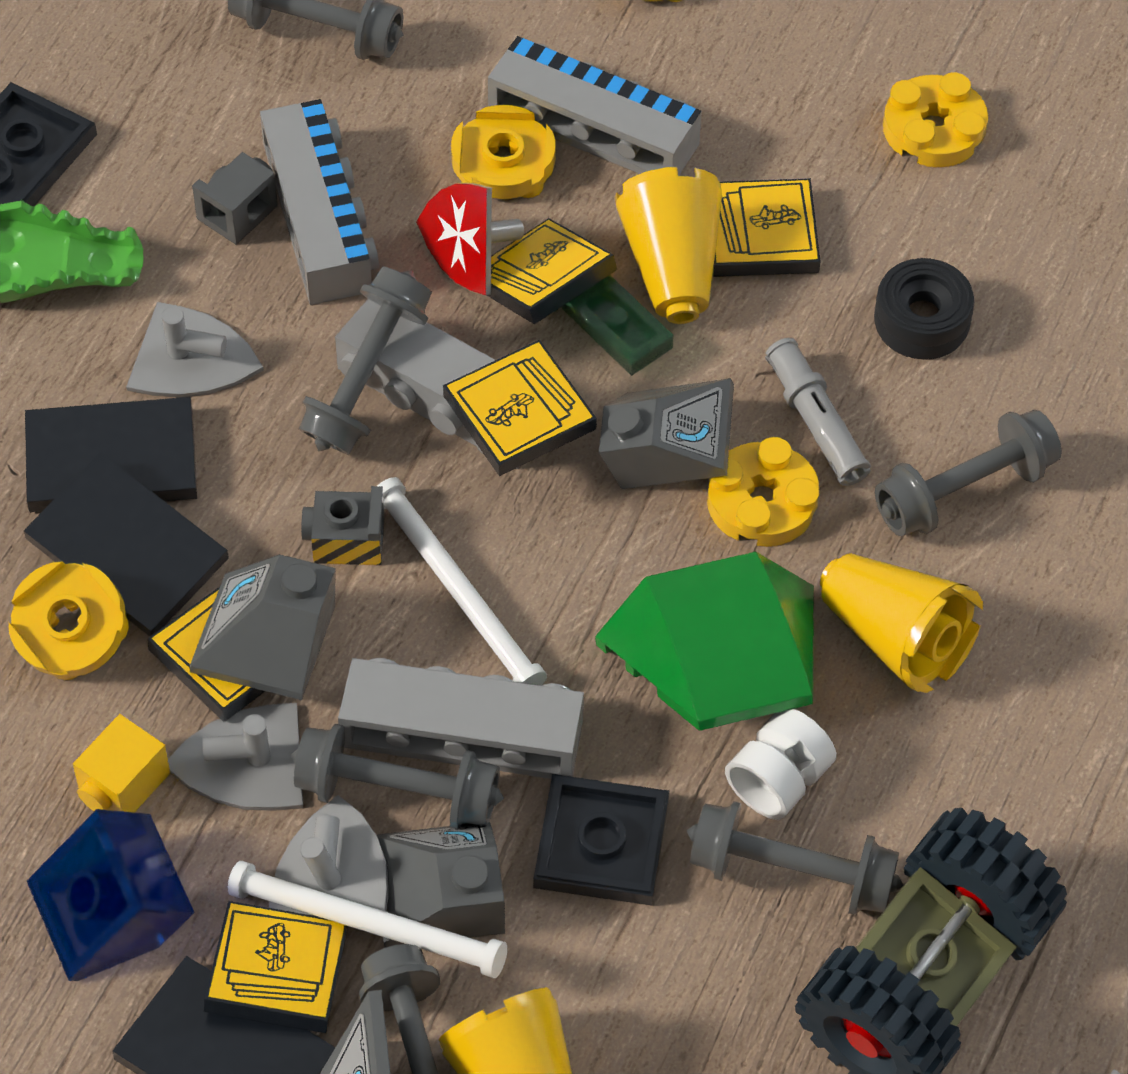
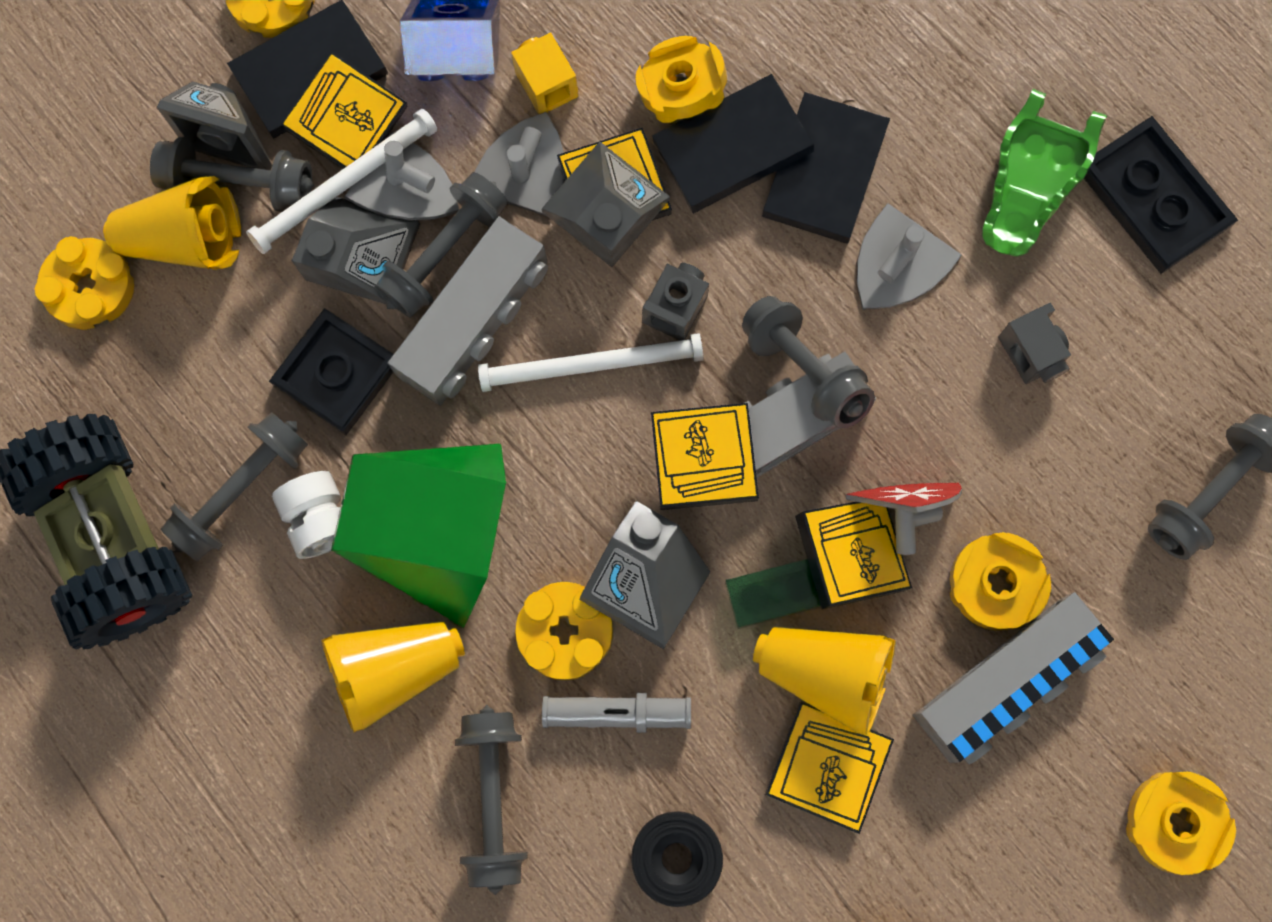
camera: 120 degrees right, 20 degrees up
(317, 201) = (1008, 405): light grey brick -> none

